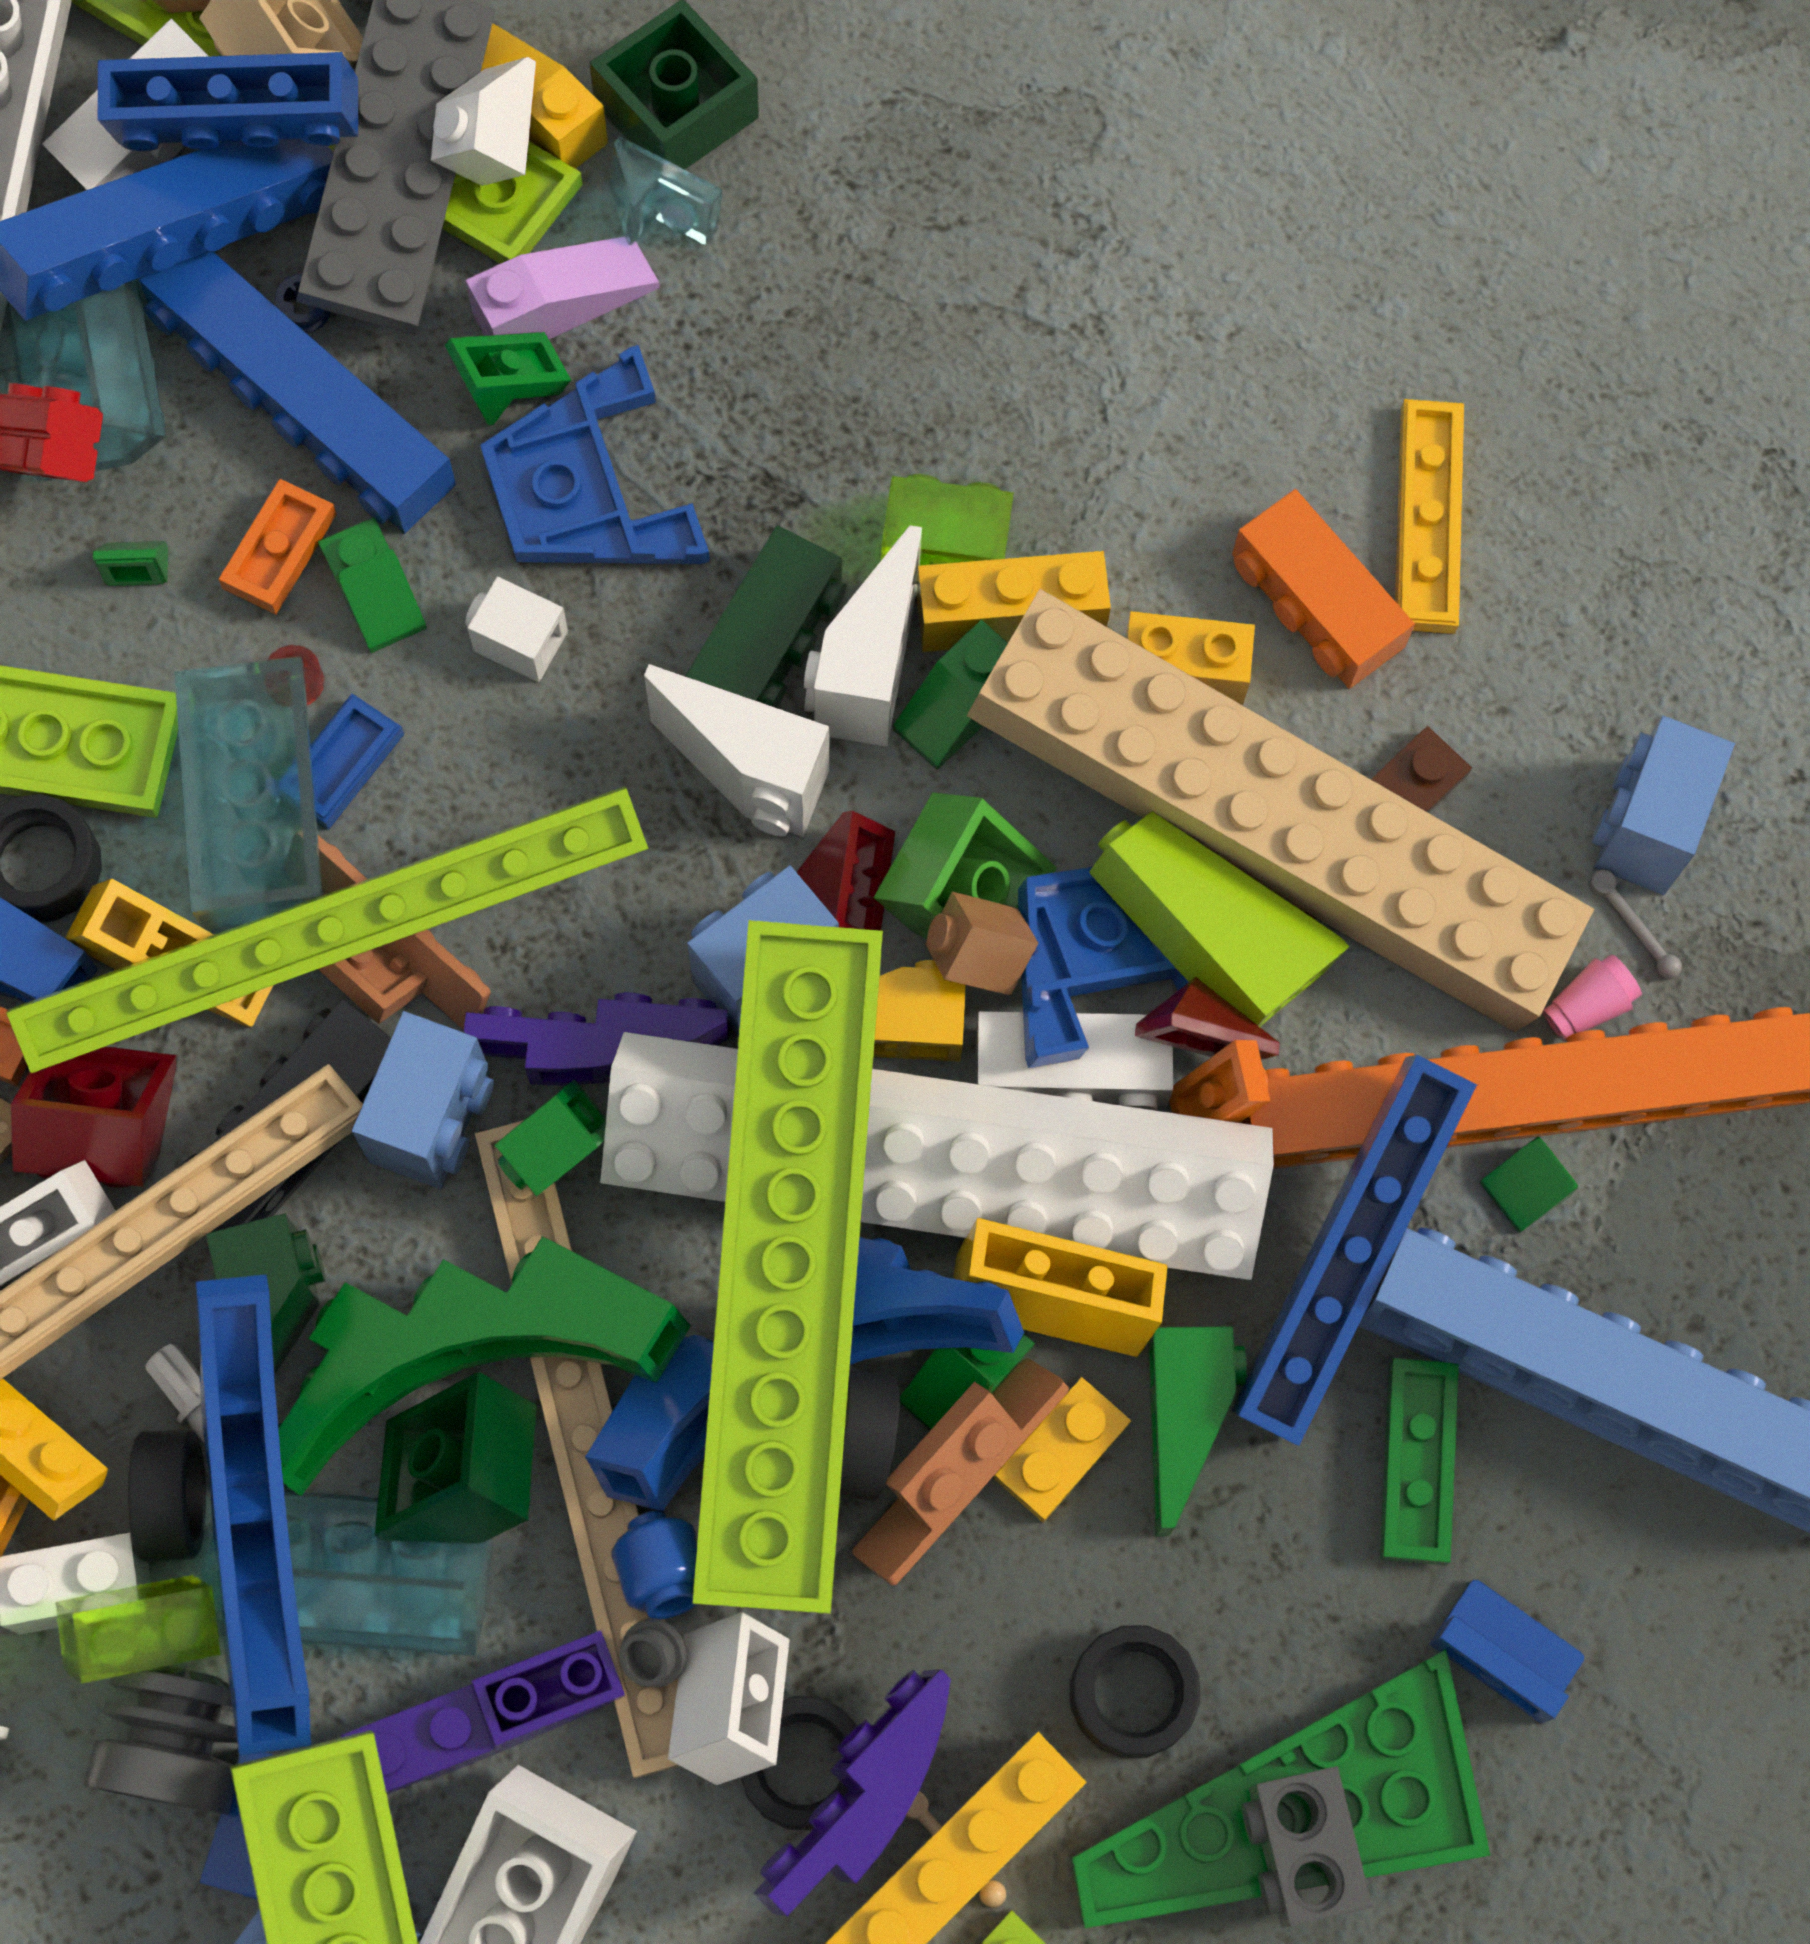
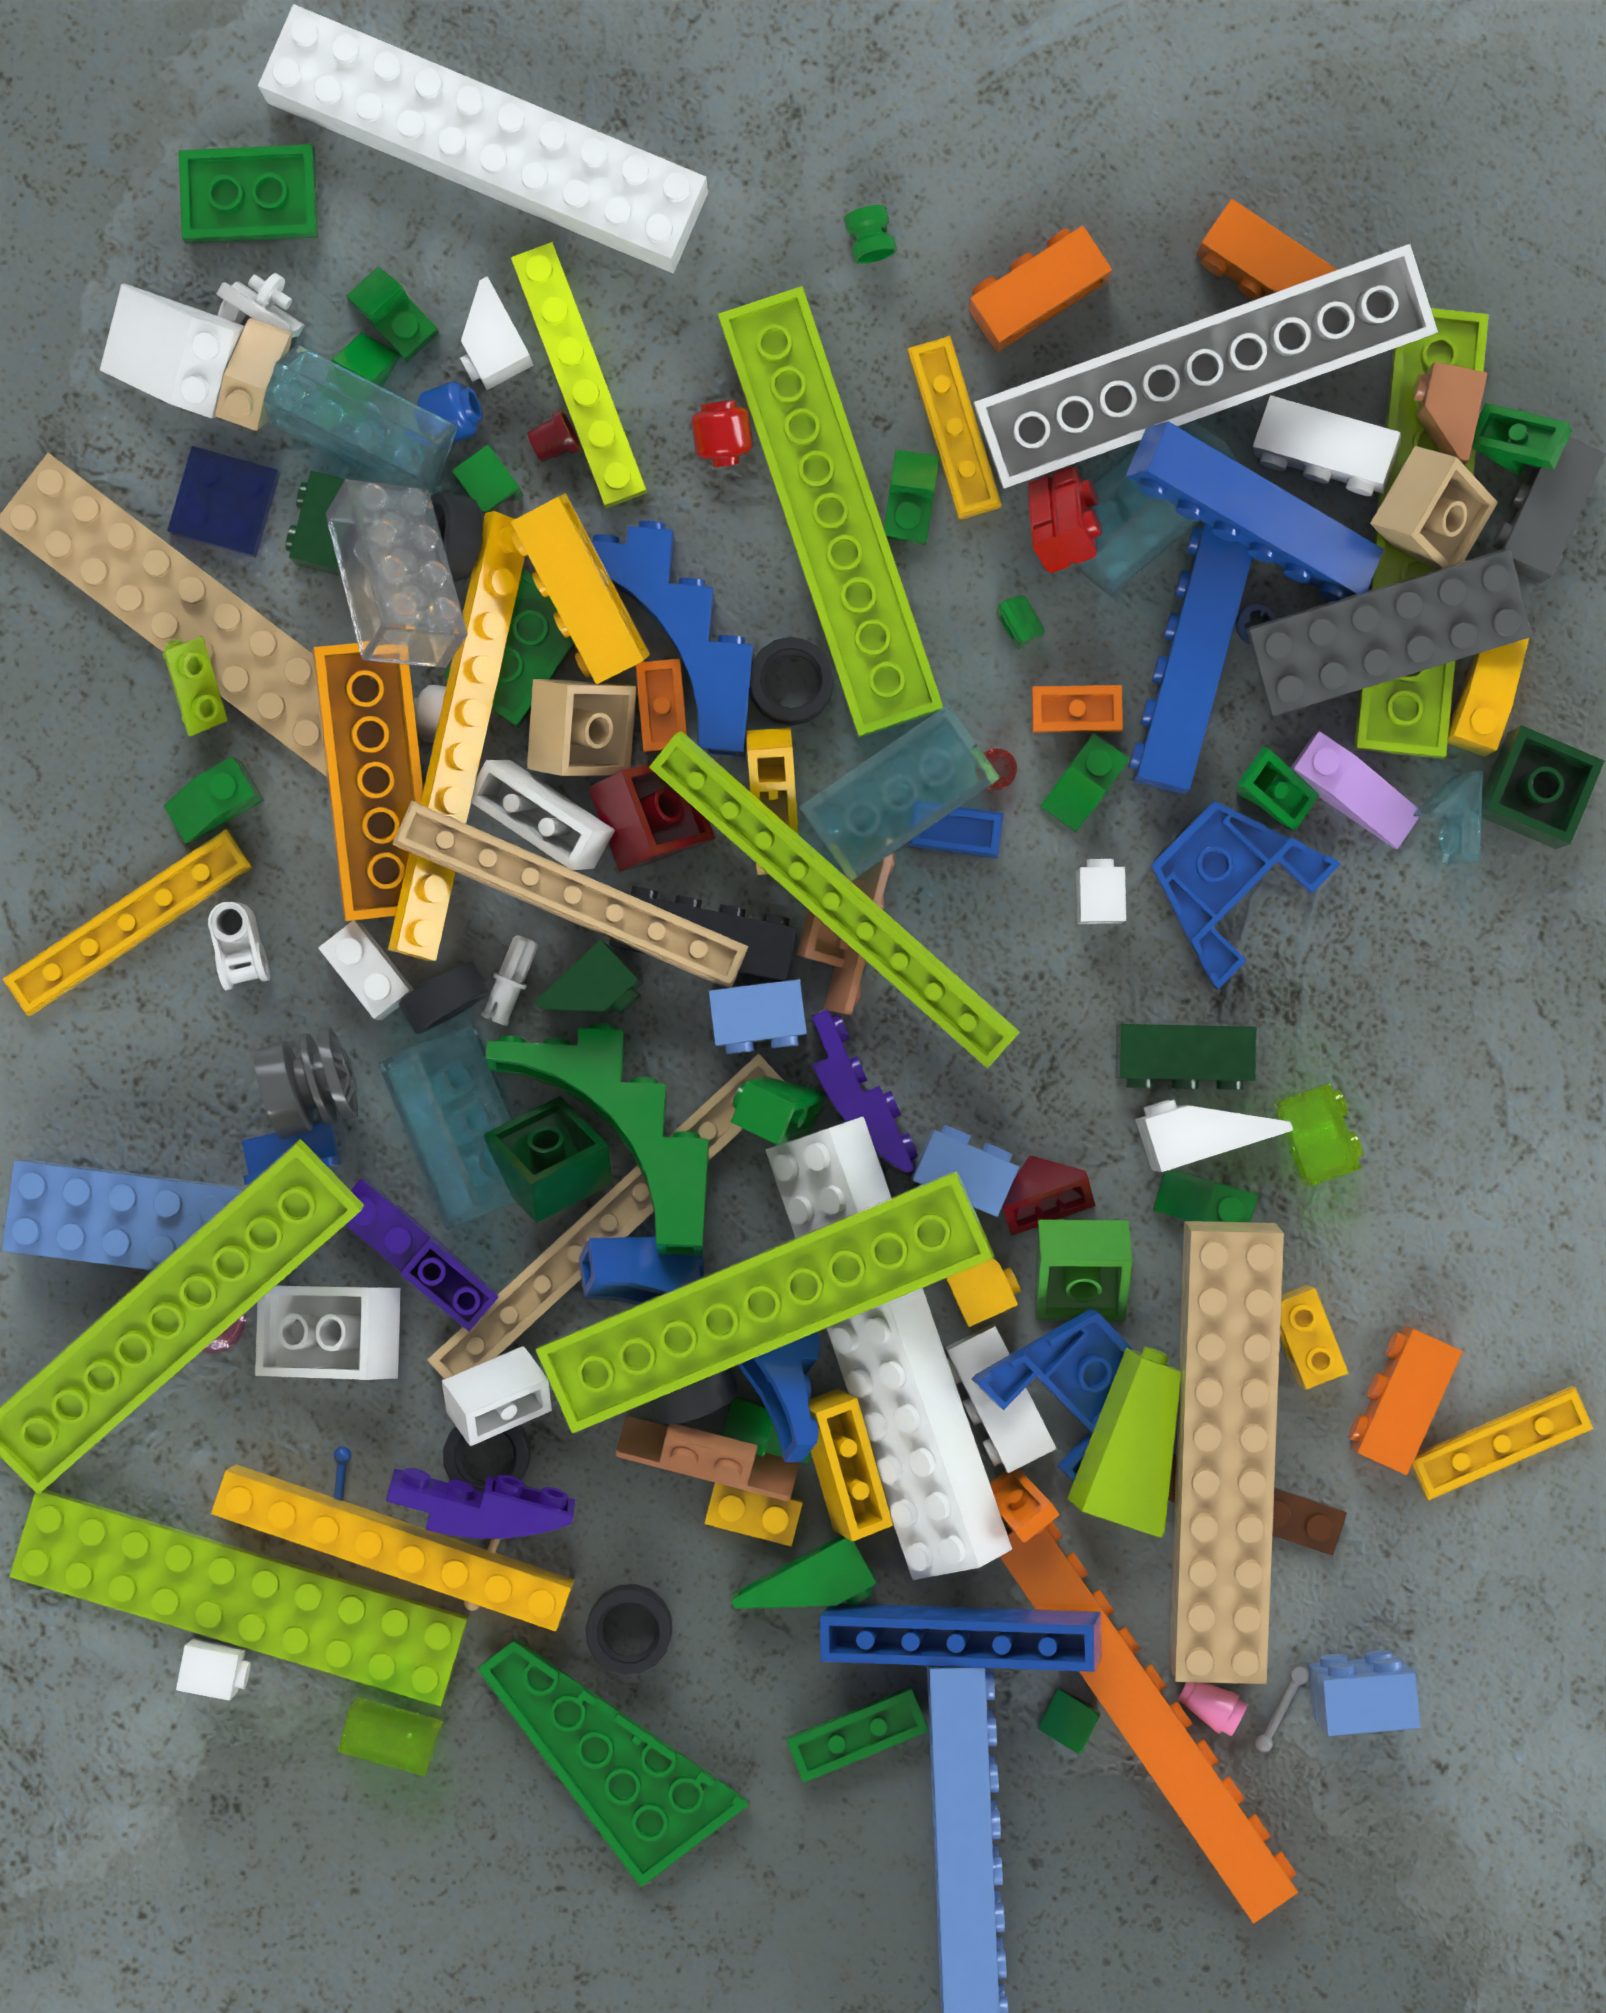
camera: 70 degrees right, 15 degrees up
(137, 1628) = (354, 1032): clear neon green brick -> none
(228, 100) = (1354, 511): blue brick -> none
(250, 1516) = (442, 1067): blue arch -> none
(486, 124) = (1442, 681): white slope -> none
(652, 1653) = (499, 1336): dark grey plate -> none
(657, 1564) = (552, 1312): blue head -> none
(750, 751) = (1089, 1097): white slope -> none
(980, 943) = (1037, 1307): medium nougat brick -> none
(1001, 590) = (1289, 1204): yellow brick -> none
(1202, 1023) = (1063, 1472): dark red slope -> none
(1325, 1843) = (593, 1787): dark grey brick -> none
(1508, 1651) = (771, 1841): blue panel -> none

